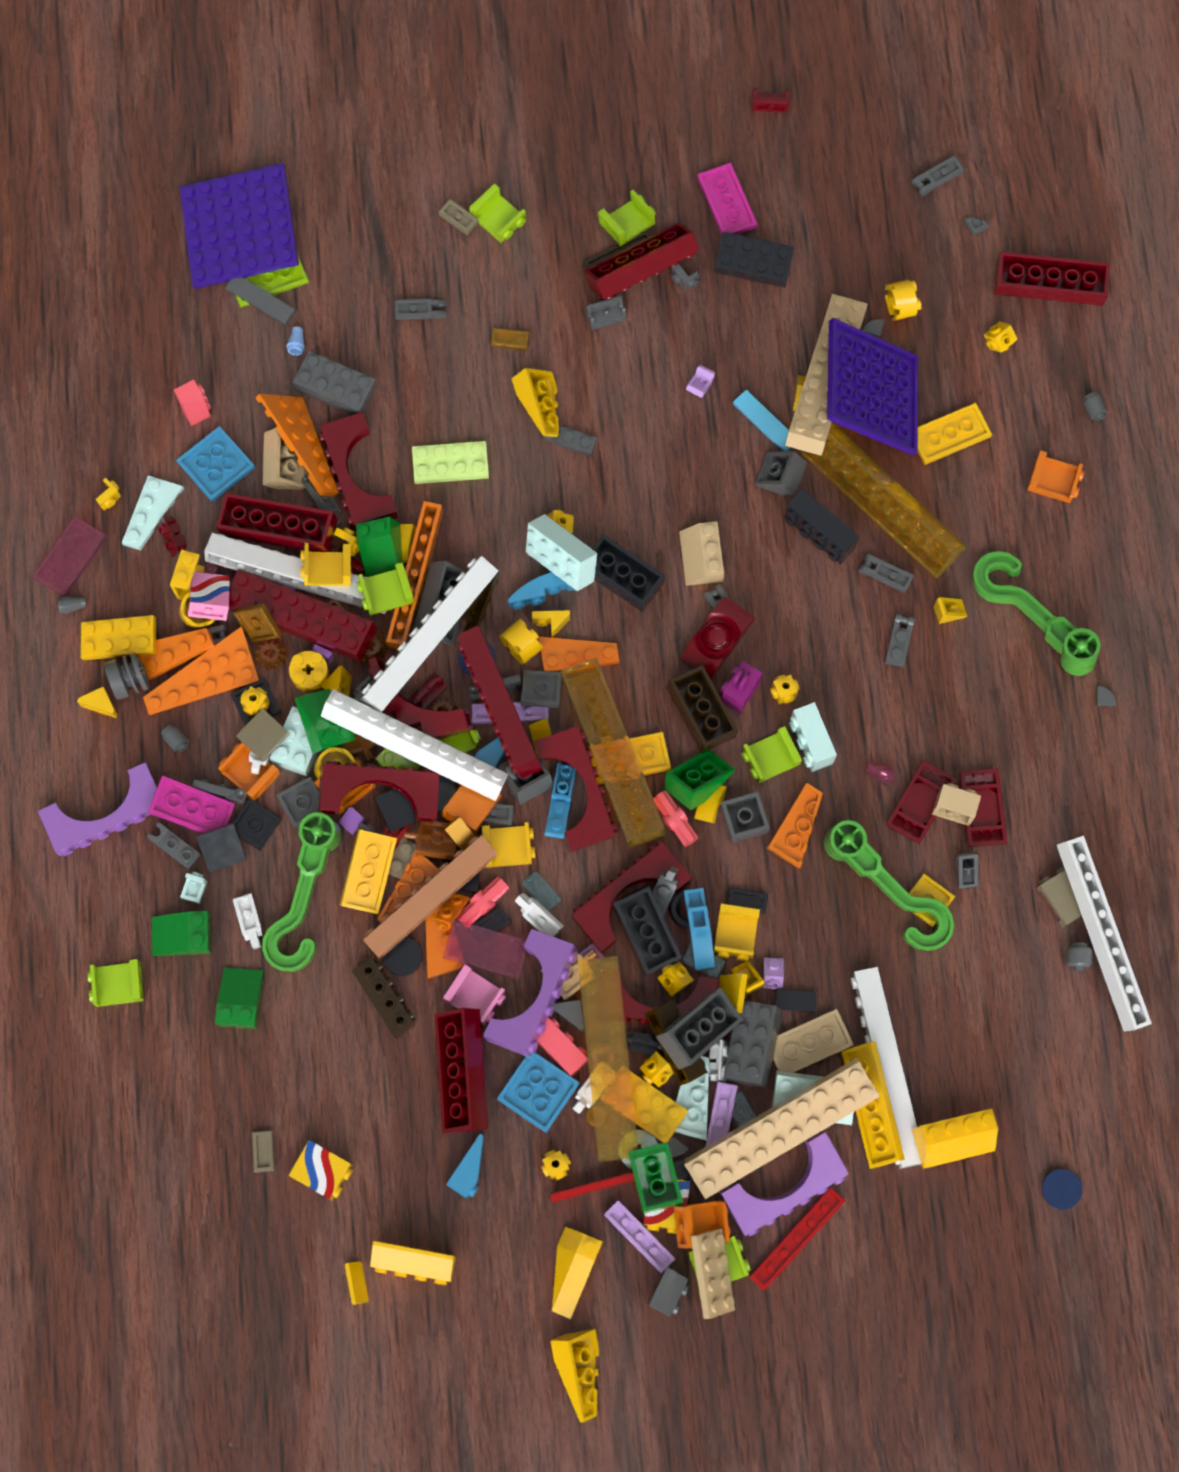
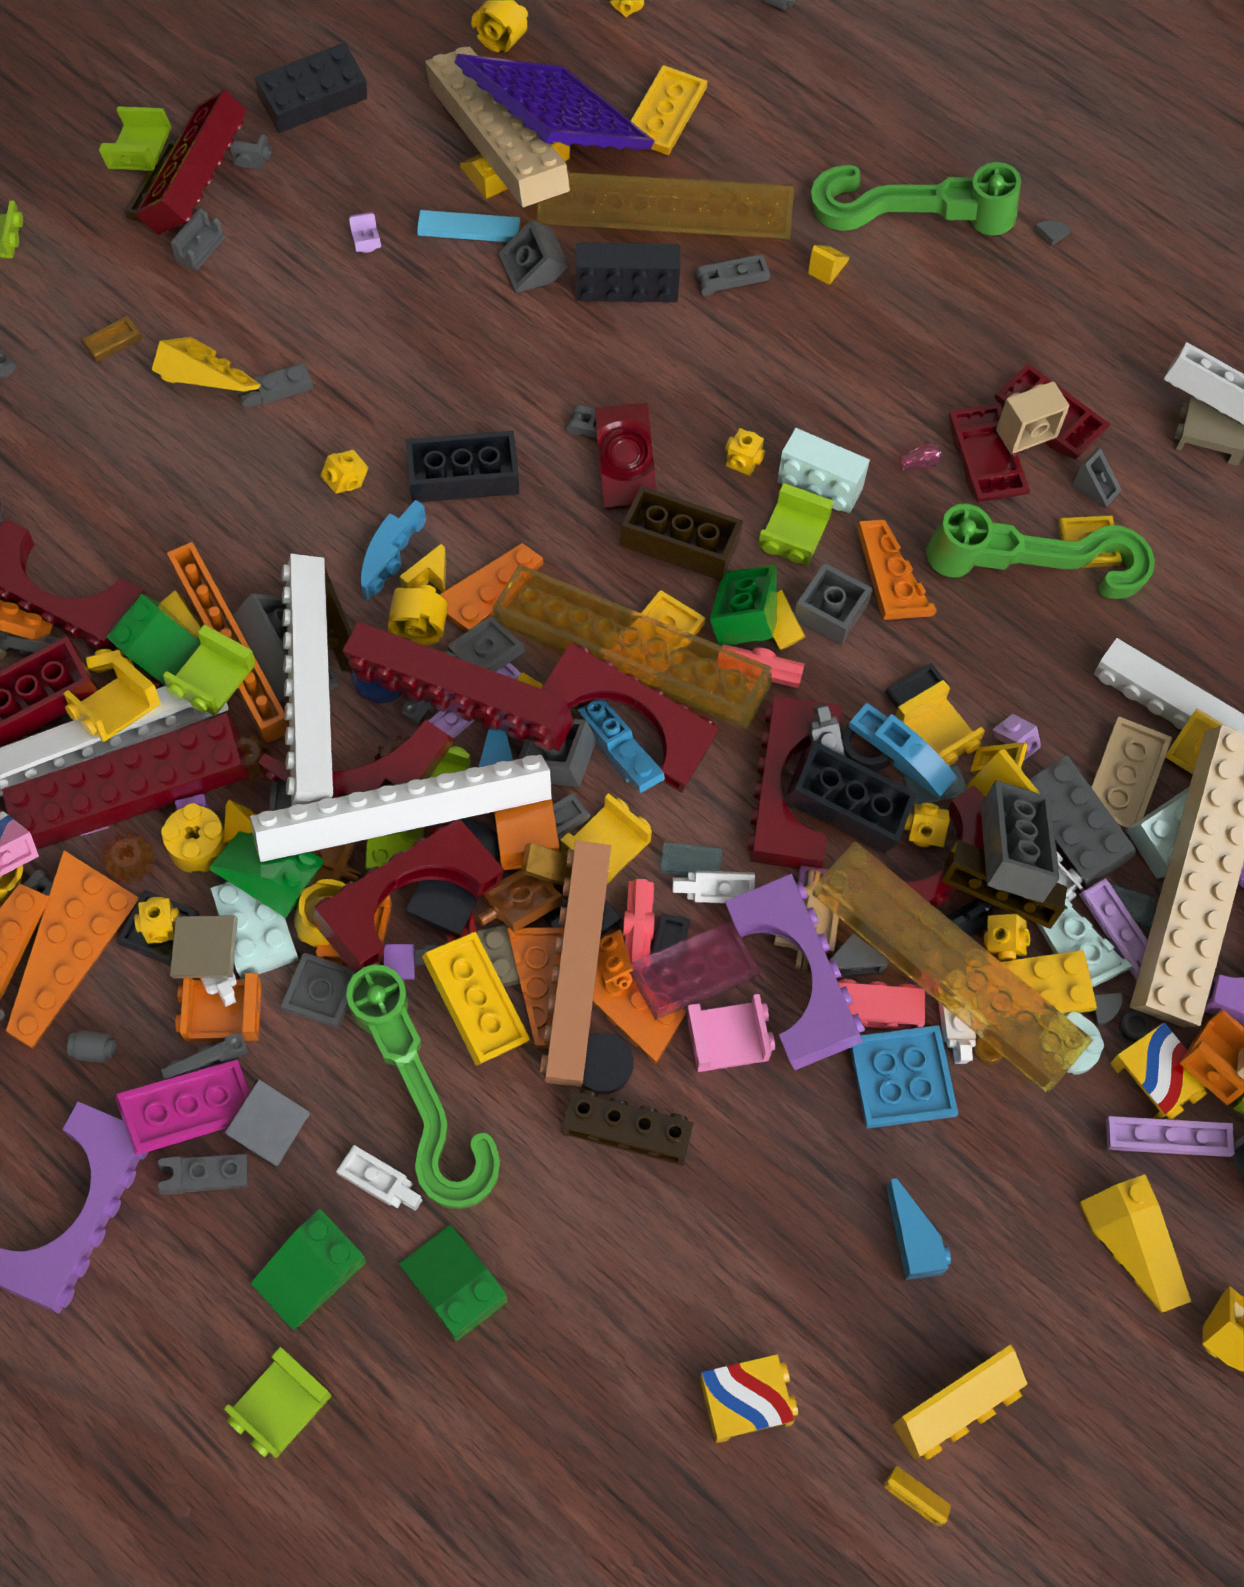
camera: 45 degrees left, 10 degrees down
(194, 887) = (274, 1199): light aqua bracket -> none
(255, 824) = (285, 1062): black tile -> none
(257, 623) = (81, 828): pearl gold tile -> none
(263, 1151) = (654, 1443): dark tan tile -> none
(428, 691) = (357, 746): dark red hinge -> none
(450, 462) = (157, 503): yellowish green plate -> none
(461, 1071) = (801, 1127): dark red brick -> none
(558, 1172) = (997, 1144): yellow brick -> none
(561, 552) = (377, 487): light aqua brick -> none
(592, 1187) = (1078, 1108): red tile -> none
(655, 1178) = (1135, 1046): green slope -> none
(702, 554) = (528, 389): tan slope -> none
(727, 200) = (226, 57): dark pink plate -> none
(741, 686) = (700, 475): magenta brick -> none
(796, 1000) = (1070, 742): black tile -> none
(899, 641) = (808, 325): dark grey plate -> none
(1055, 478) = (805, 79): orange panel -> none

